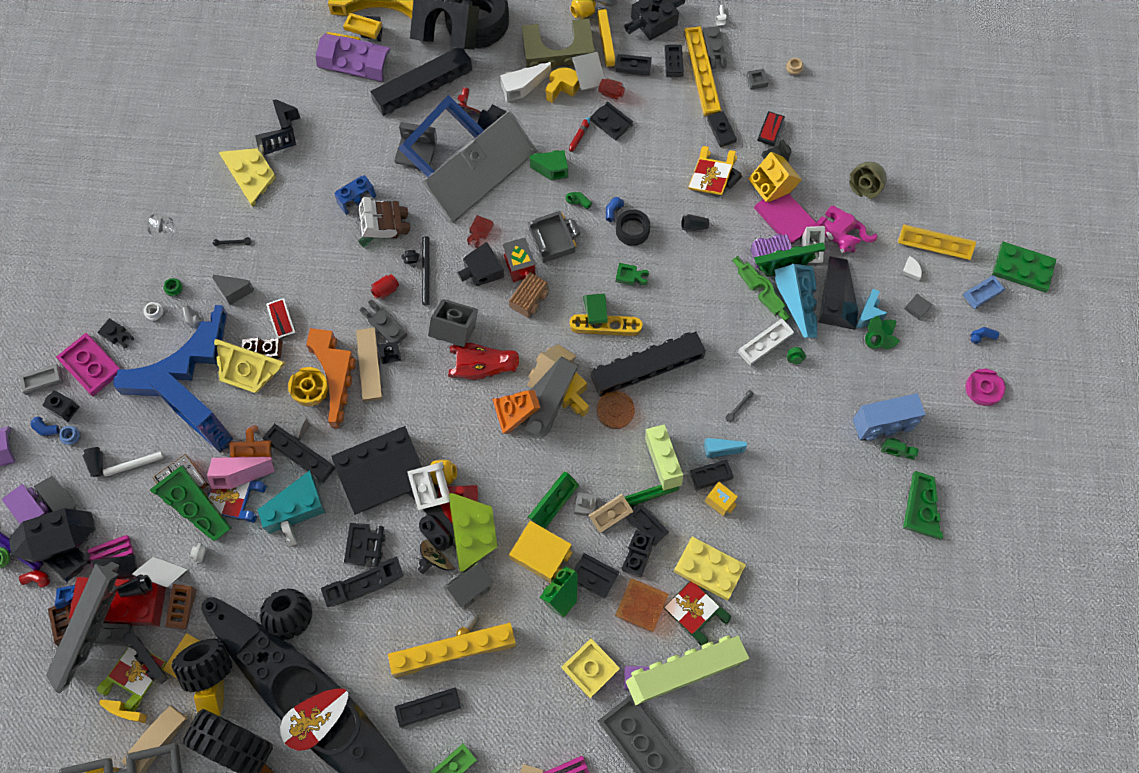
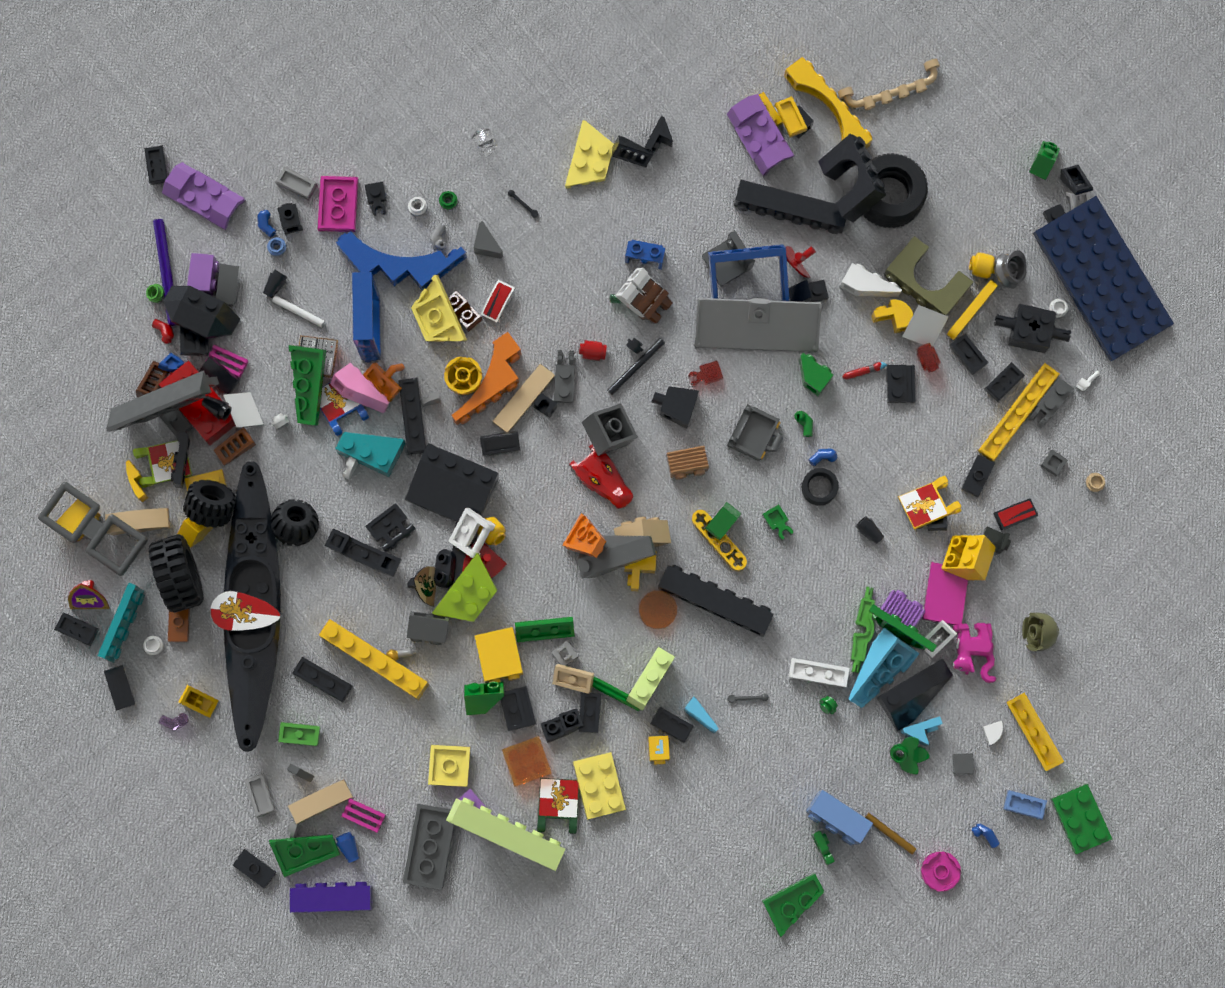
camera: 45 degrees right, 10 degrees up
(383, 408) = (500, 443): none -> black tile
(518, 259) = (708, 427): piece -> none
(938, 395) = (891, 834): none -> pearl gold bar

